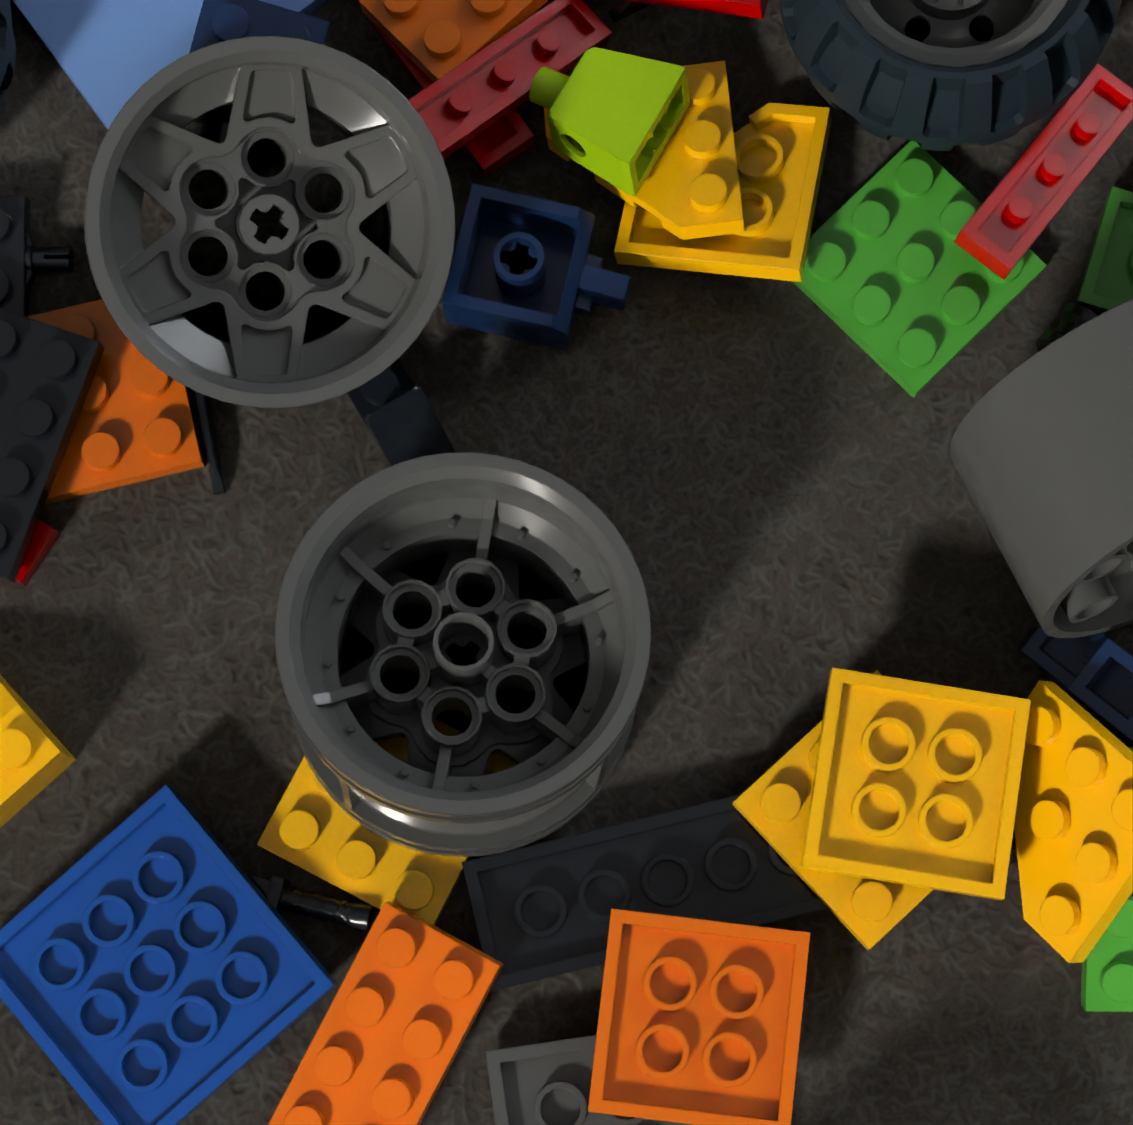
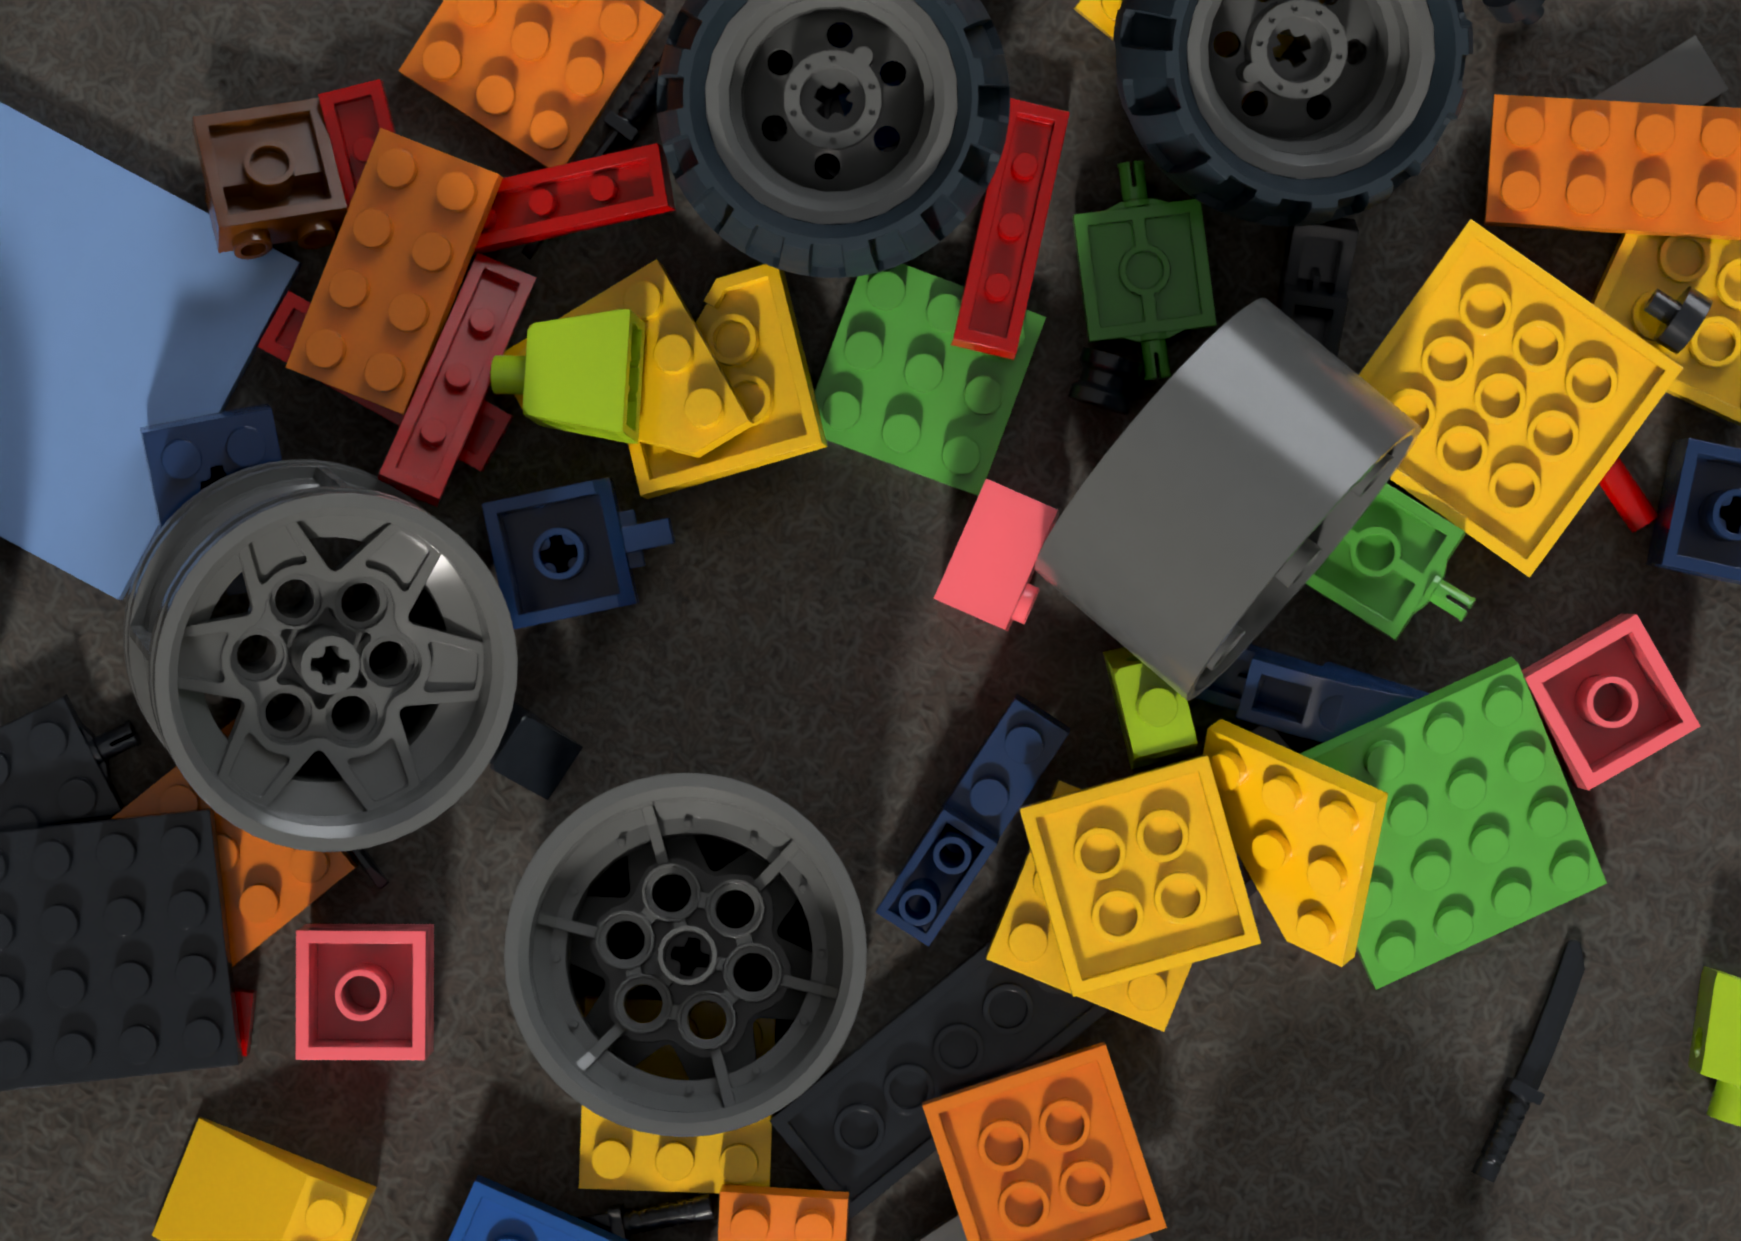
camera: 30 degrees left, 10 degrees up
(154, 567) = (364, 991): none -> coral brick
(778, 674) = (972, 819): none -> dark blue slope
(905, 443) = (997, 557): none -> coral brick
(992, 641) = (1150, 712): none -> lime torso

